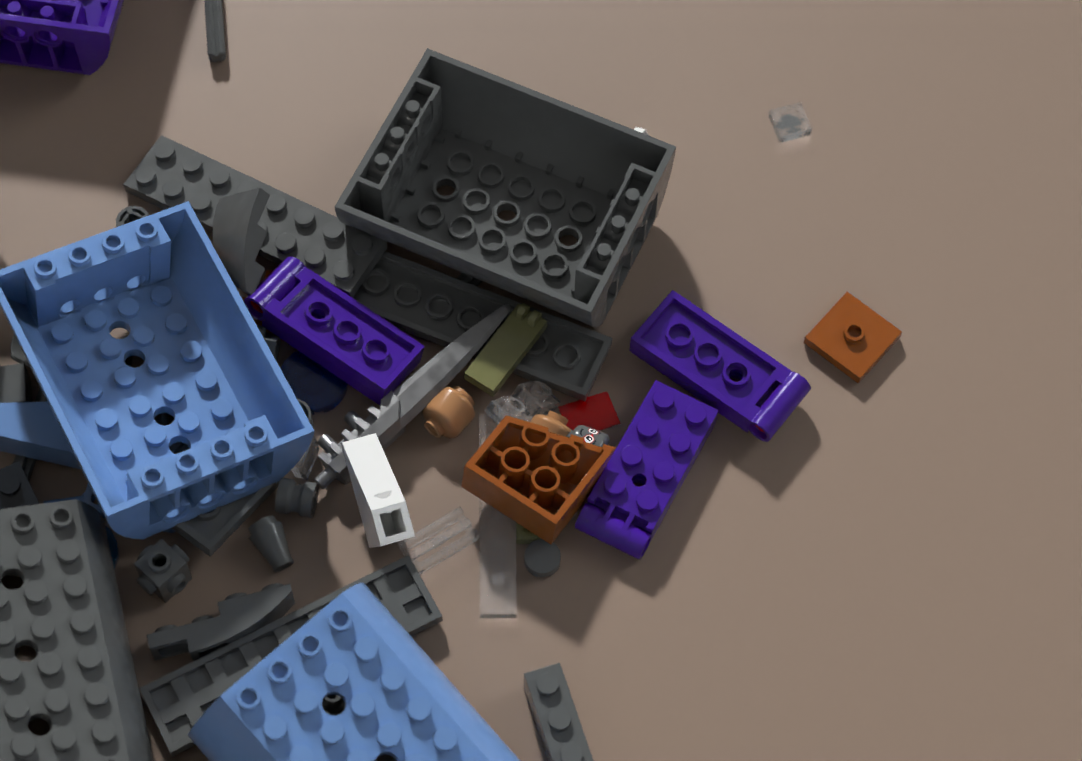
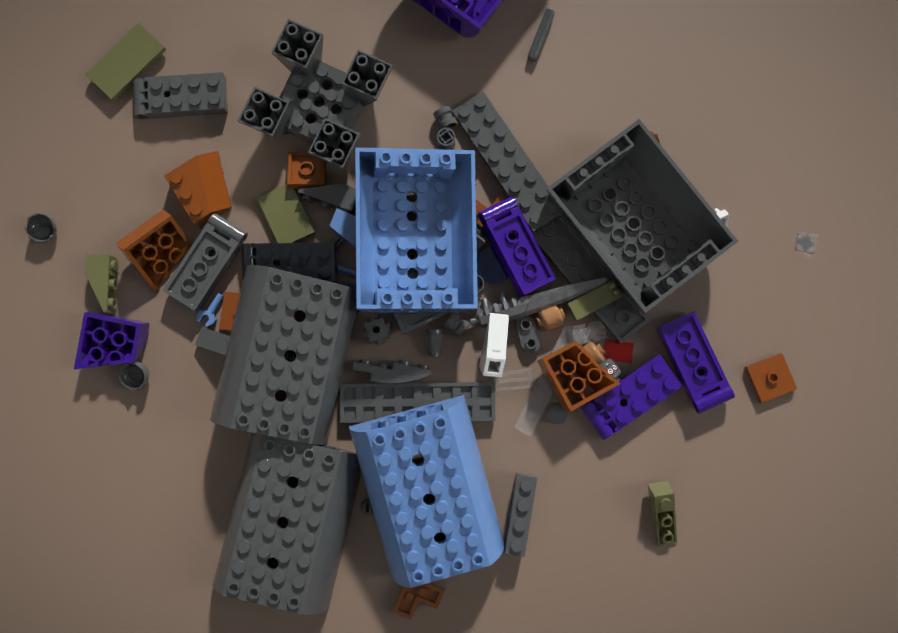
camera: 30 degrees right, 20 degrees up
(115, 197) = (445, 117): none -> dark grey wheel
(239, 236) = (492, 176): dark grey slope -> none
(424, 457) = (527, 334): none -> dark grey plate
(803, 623) = (663, 512): none -> olive slope

